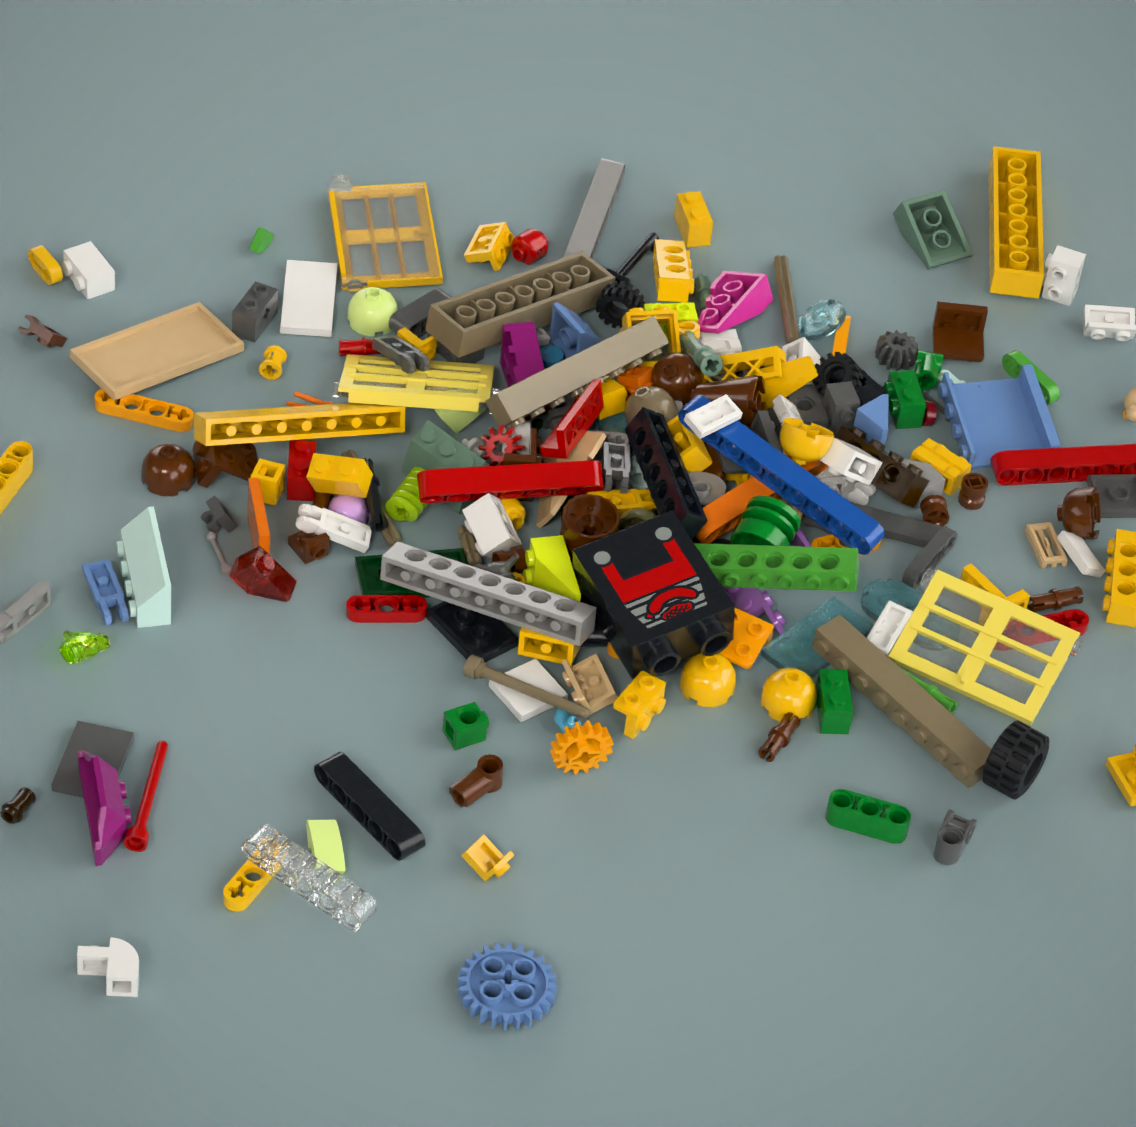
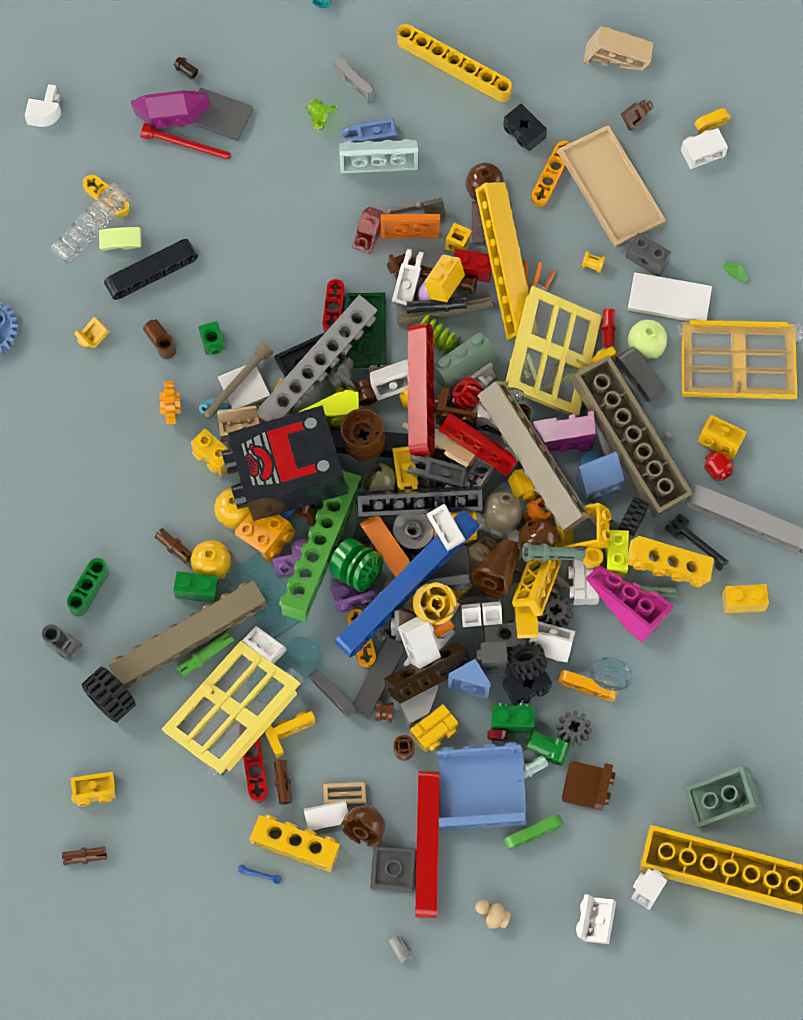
camera: 105 degrees right, 25 degrees up
(78, 434) = (524, 127): none -> black brick
(401, 353) = (583, 342): dark grey hinge -> none
(786, 299) = (648, 657): dark tan axle -> none

